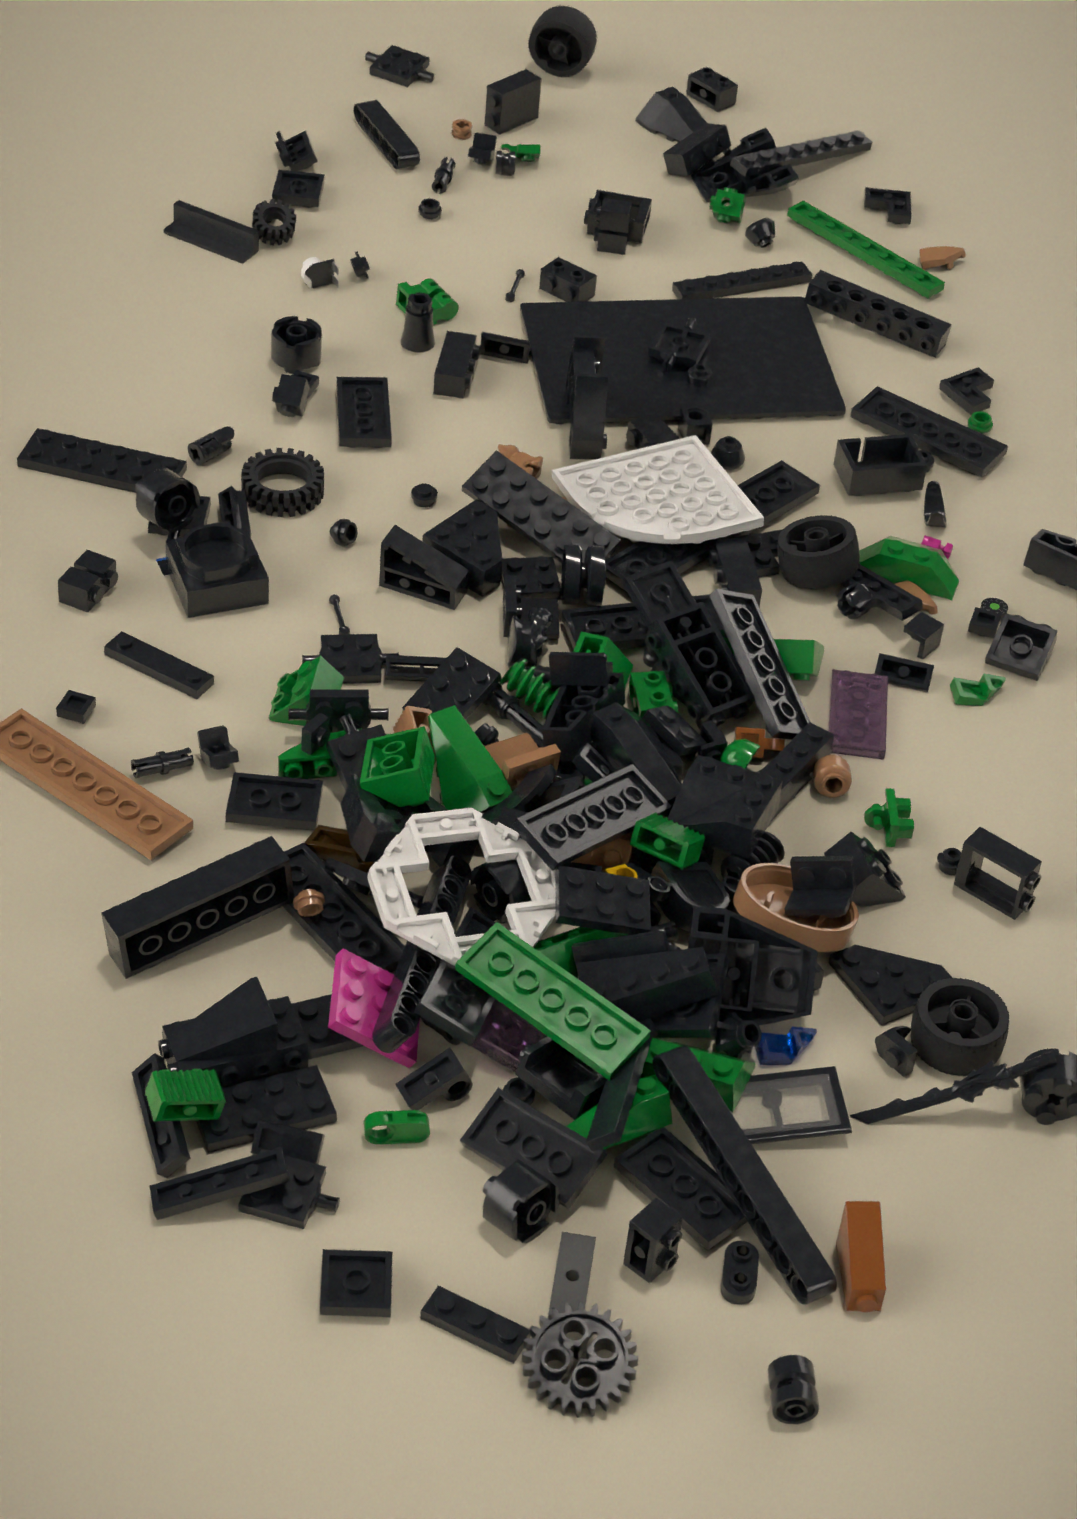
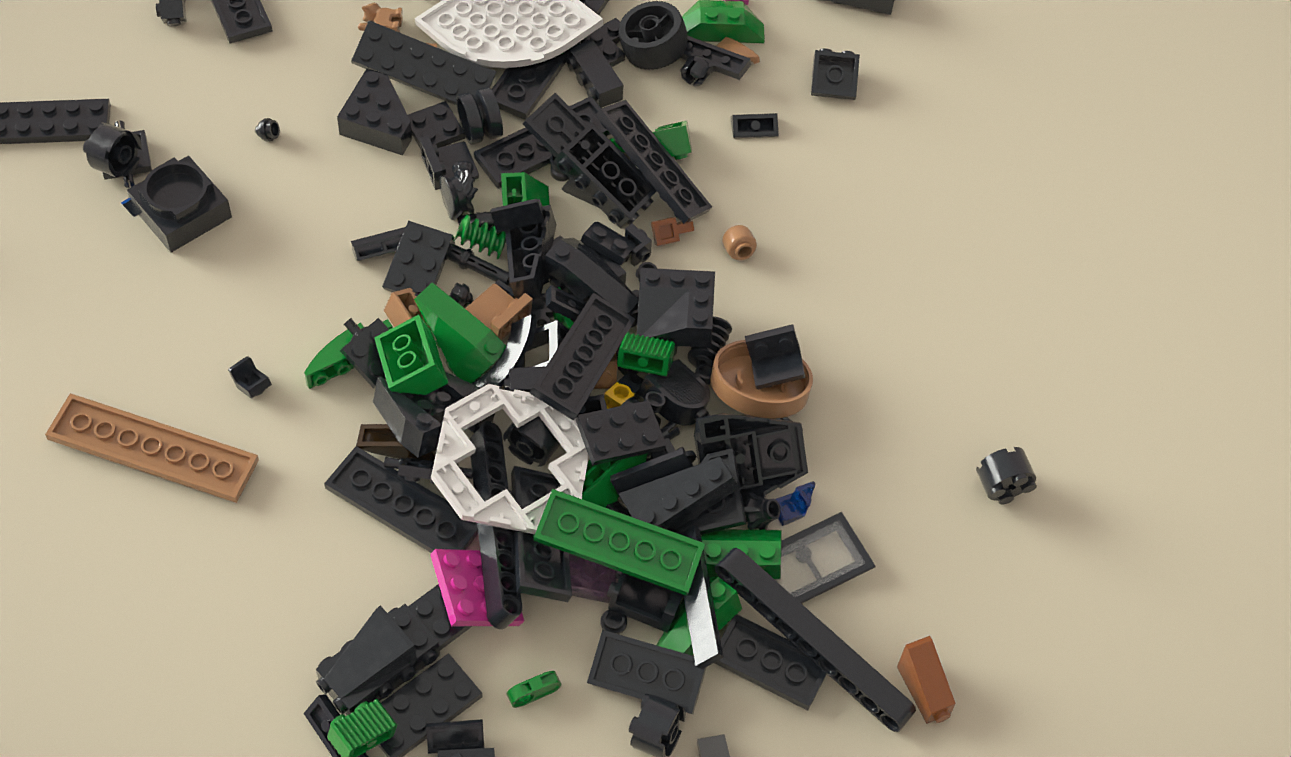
camera: 20 degrees left, 15 degrees up
(76, 706) = (114, 374): black plate -> none
(87, 580) = (75, 251): black piece -> none
(159, 665) = (166, 308): black plate -> none
(162, 762) = (208, 406): black pin -> none
(198, 906) = (299, 544): black brick -> none
(211, 445) = (123, 76): black hinge -> none
(234, 508) = (169, 138): black piece -> none
(274, 801) = (315, 412): black plate -> none
(279, 500) = (203, 115): black tyre -> none
(295, 688) = (301, 300): green slope -> none
(309, 902) = (385, 506): medium nougat plate -> none
(315, 734) = (329, 344): black plate -> none
(334, 600) = (305, 225): black hinge -> none
(338, 703) = (330, 315): black plate -> none
(353, 656) = (320, 252): black plate -> none
(420, 570) = (347, 150): black wedge -> none
(424, 495) = (318, 71): black plate -> none
(438, 1077) = (549, 633): black plate -> none
(650, 691) = (574, 213): green brick -> none
(653, 1240) = (772, 724): black brick -> none
(739, 752) = (665, 251): green hair -> none
(740, 1269) = (839, 719): black plate -> none
(797, 761) = (705, 244): black wedge -> none
(858, 713) = (734, 175): clear purple plate -> none
(873, 876) = (808, 327): black slope -> none
(885, 981) = (851, 416): black plate -> none
(891, 817) = (793, 266): green hips -> none
(896, 1049) = (878, 479): black plate -> none
(926, 631) = (759, 83): black panel -> none
(949, 860) = (854, 294): black plate -> none
(959, 1026) = (918, 443): black wheel -> none
(966, 1089) = (948, 502): black sword -> none
(975, 692) = (813, 126): green slope -> none
(984, 622) = (798, 59): black plate -> none
(990, 889) = (896, 306): black window -> none
(995, 605) = (799, 44): black tile -> none

